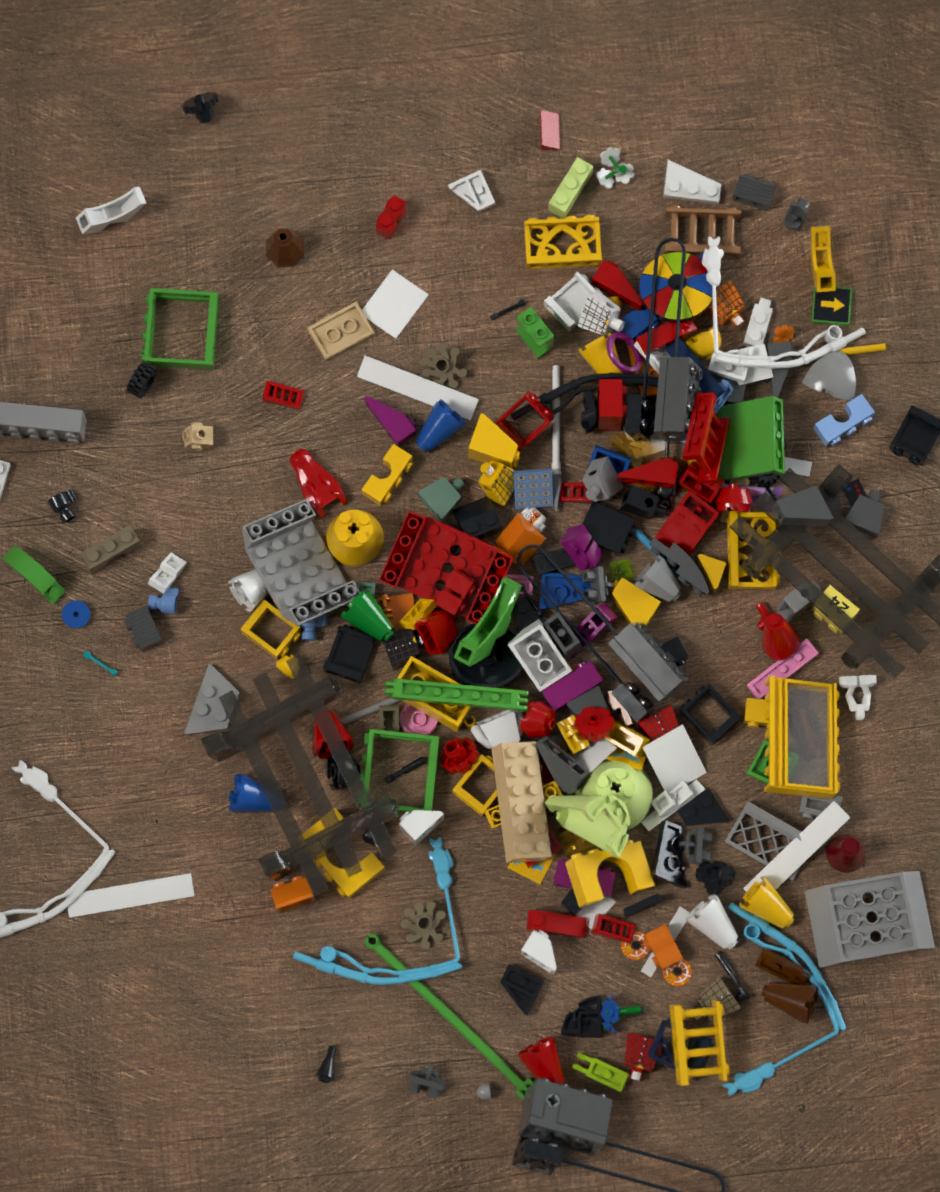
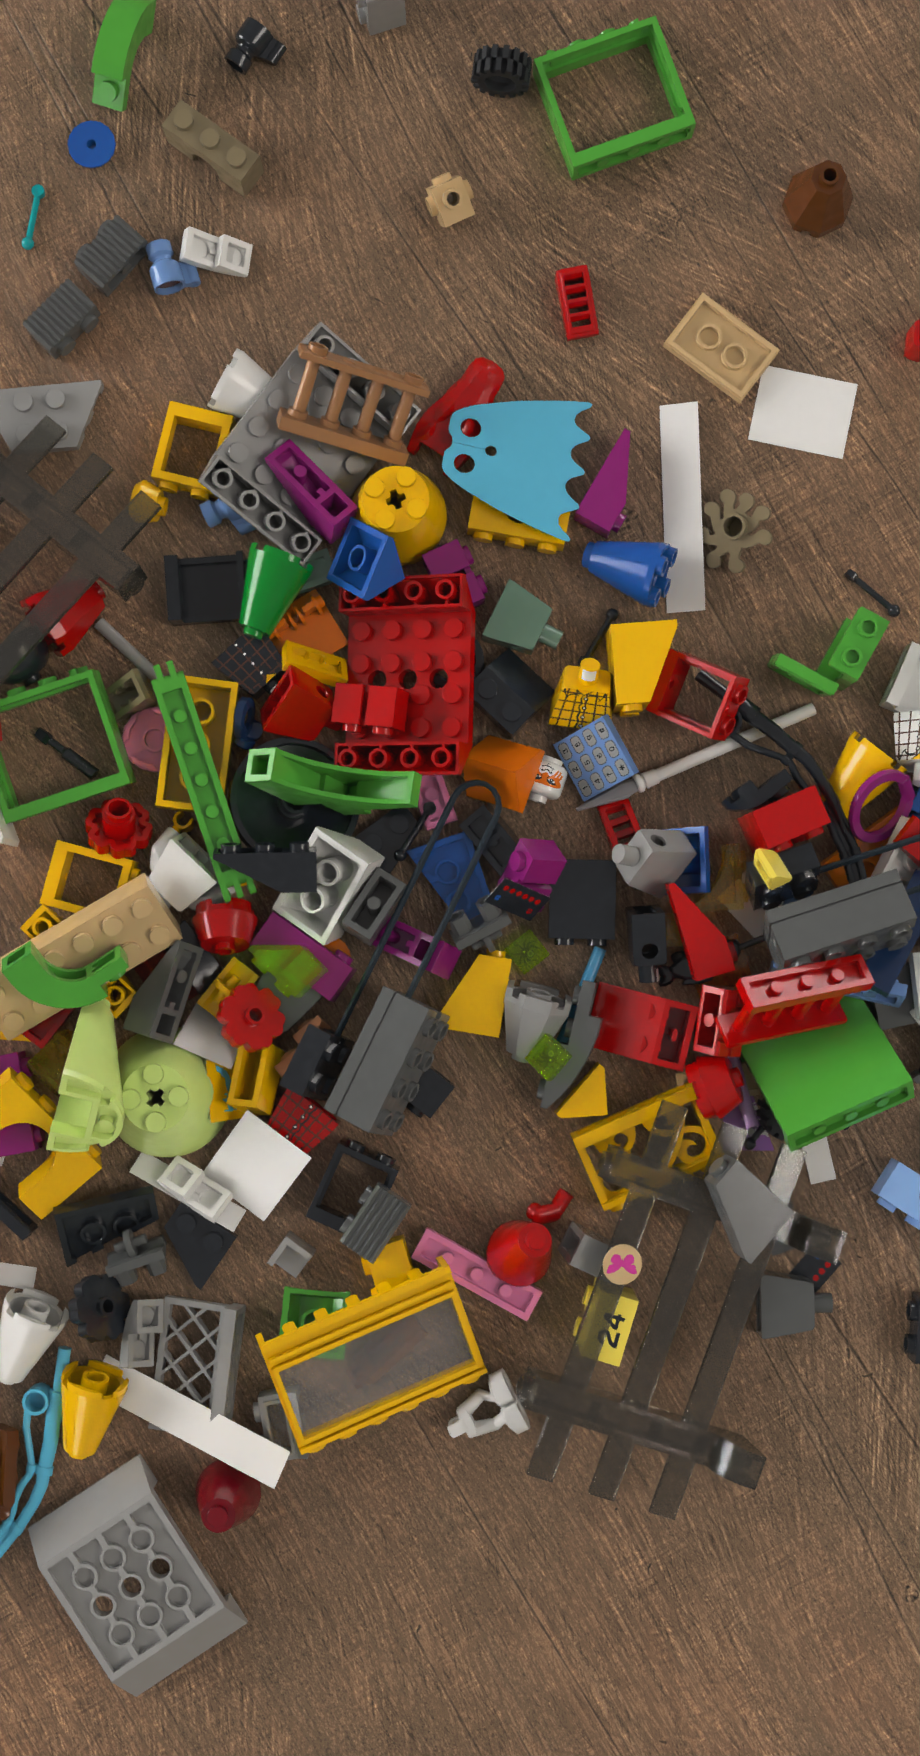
camera: 70 degrees right, 10 degrees up
(166, 669) = (62, 319): none -> dark grey brick
(309, 535) = (359, 437): none -> medium nougat fence
(326, 572) = (312, 491): none -> magenta slope
(360, 454) = (530, 461): none -> medium azure piece
(377, 559) = (365, 561): none -> blue slope
(394, 519) = (456, 559): none -> magenta piece
(436, 664) = (246, 731): none -> dark blue piece
(477, 473) = (611, 614): none -> black hinge
(523, 668) = (281, 868): none -> black slope
(537, 363) = (802, 675): none -> bright green tile
(537, 807) = (60, 986): none -> bright green arch
(575, 690) = (291, 966): none -> clear neon green slope
(591, 558) = (517, 899): none -> black sticker
(633, 419) = (771, 868): none -> light yellow slope
(682, 578) = (548, 1057): none -> clear neon green tile
(730, 704) = (375, 1221): none -> dark grey brick
(730, 762) = (292, 1254): none -> light grey panel
(733, 856) = (138, 1337): none -> light grey slope
(806, 583) = (622, 1264): none -> tan sticker

